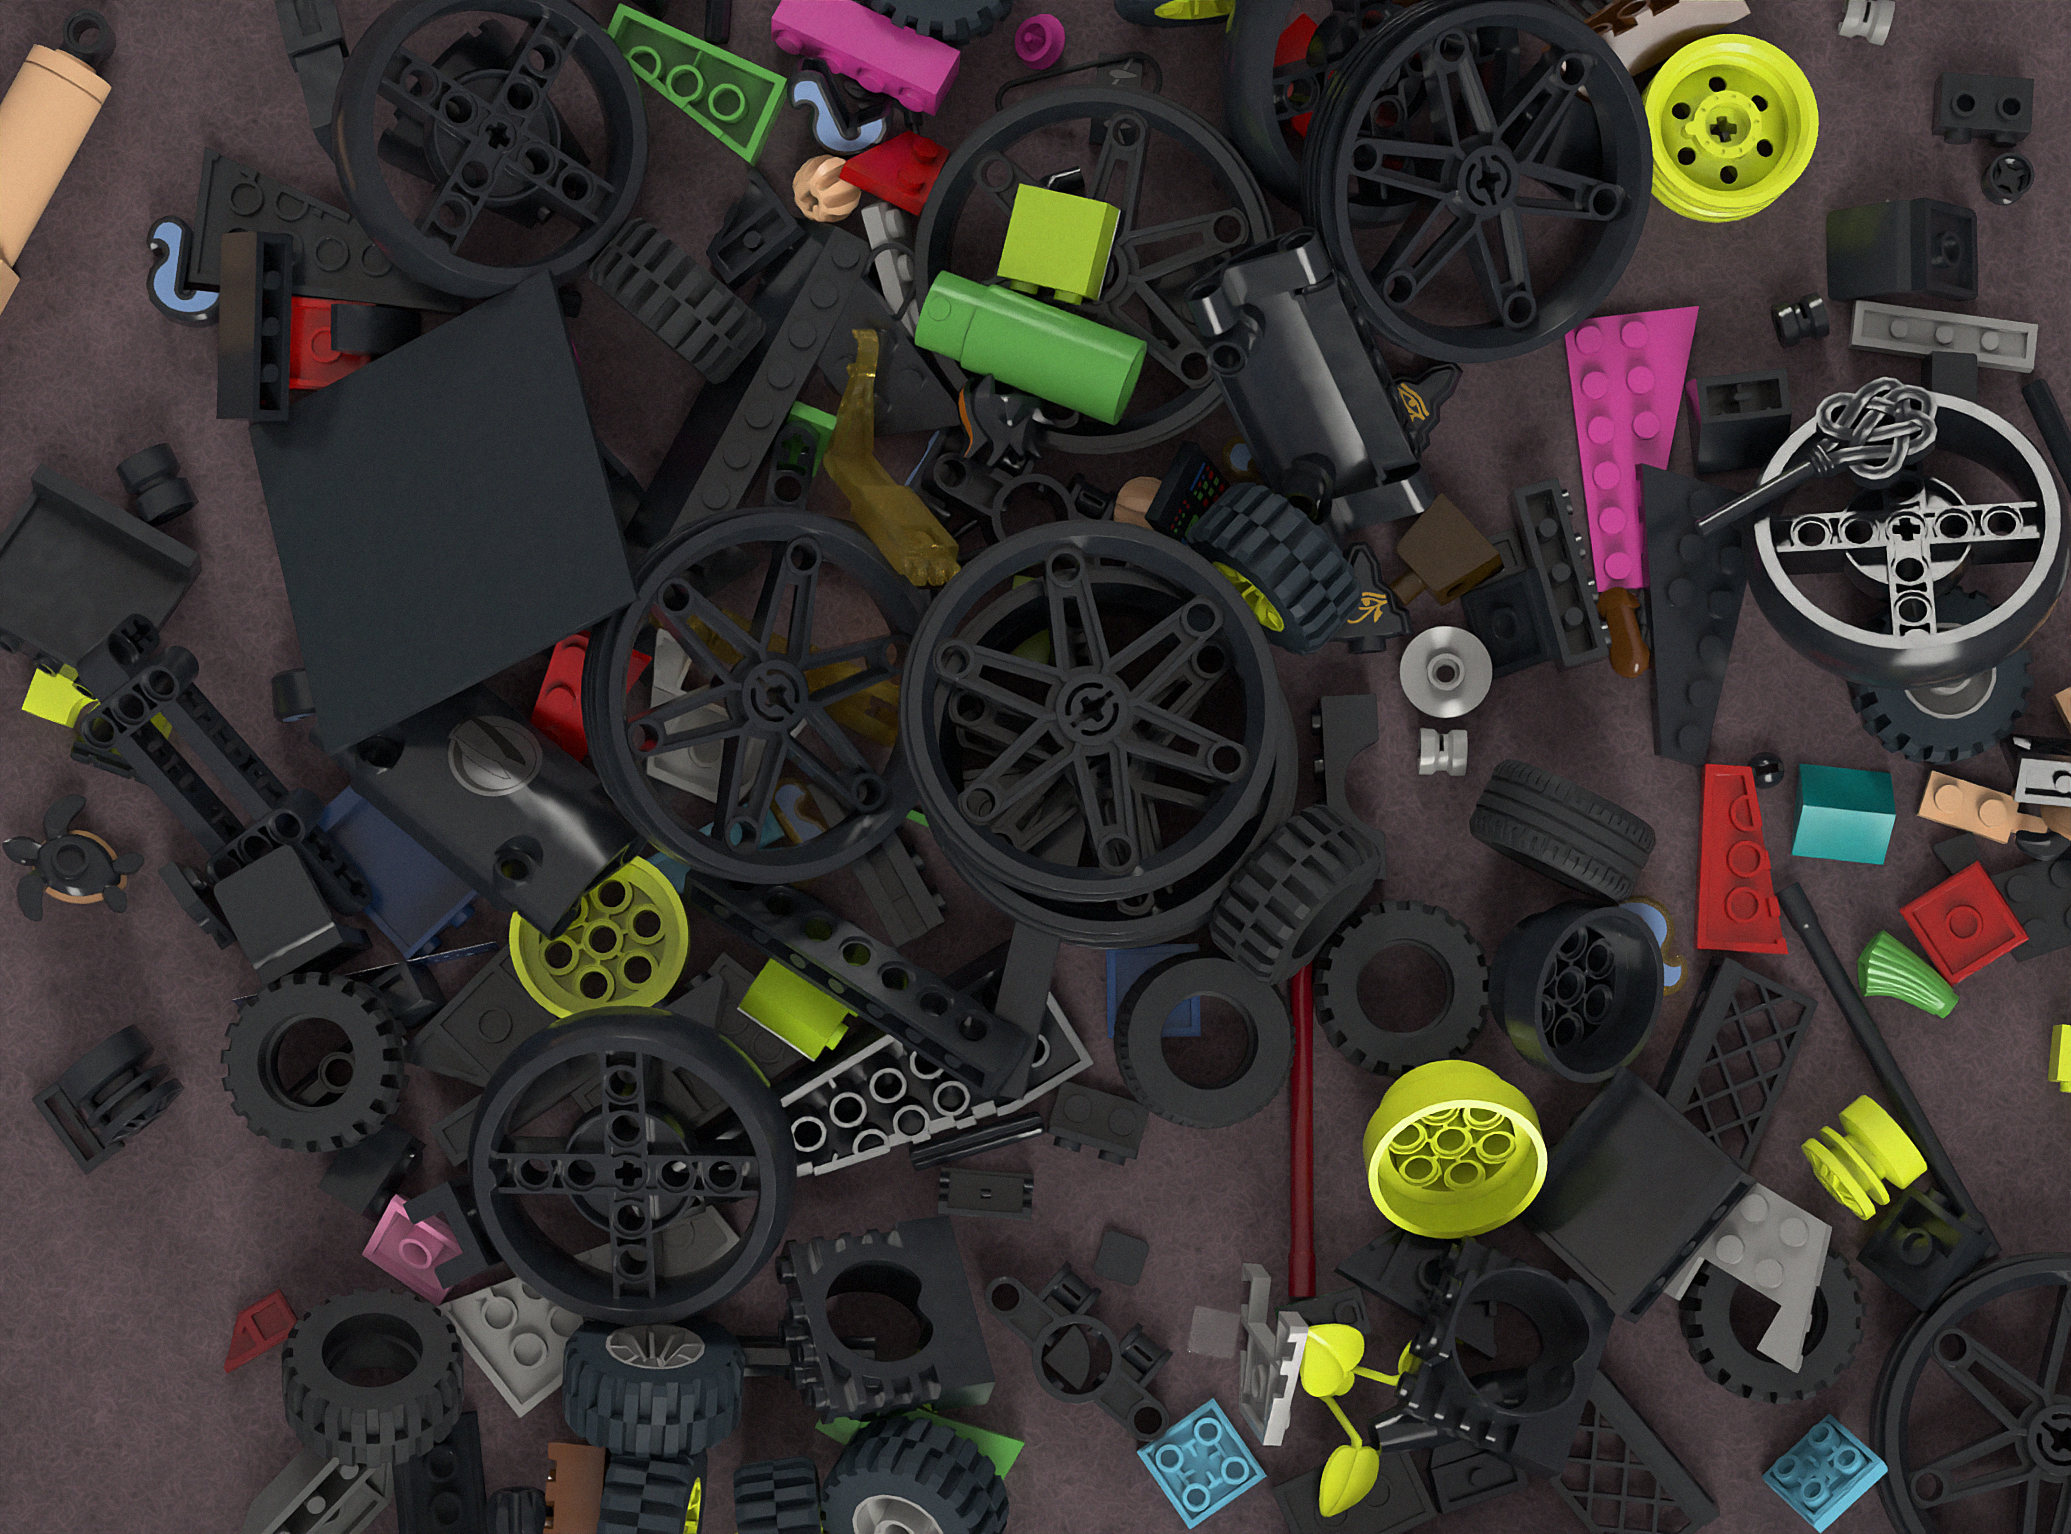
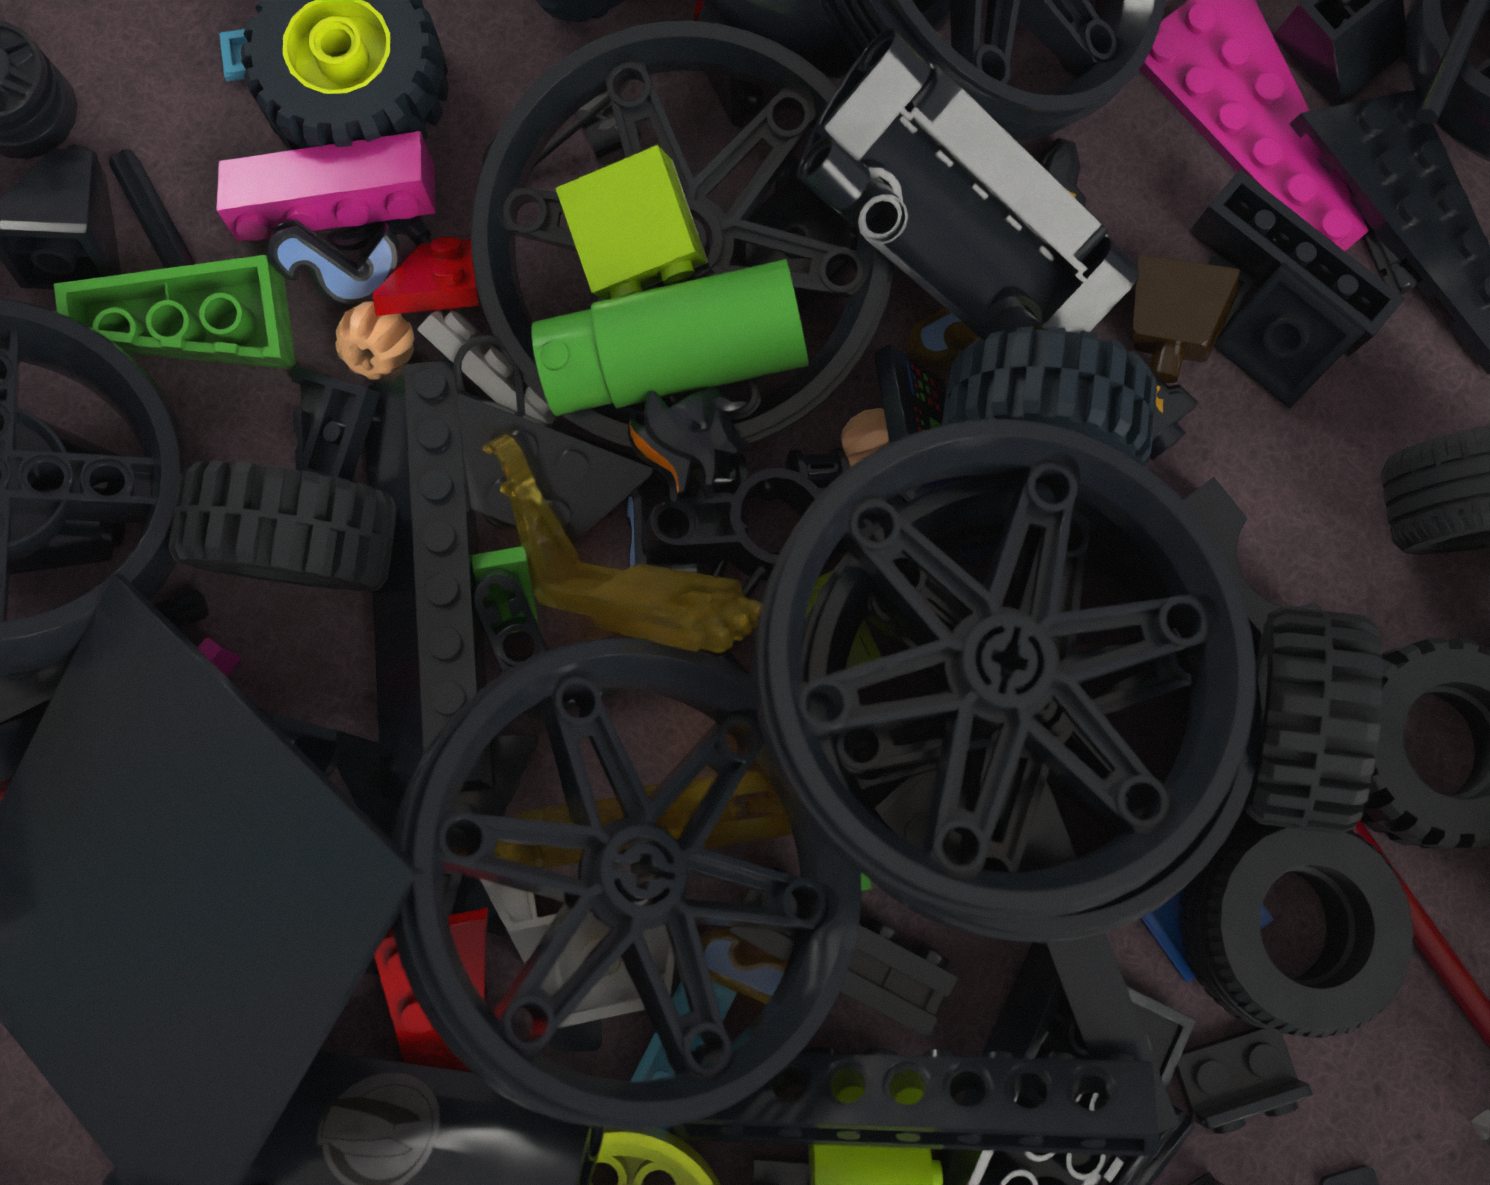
camera: 30 degrees left, 5 degrees down
(1040, 41) = (491, 91): dark pink hat -> none
(1442, 752) = (1309, 491): light grey wheel -> none
(1449, 648) = (1268, 399): light grey dish -> none
(1628, 652) = (1413, 288): reddish brown piece -> none

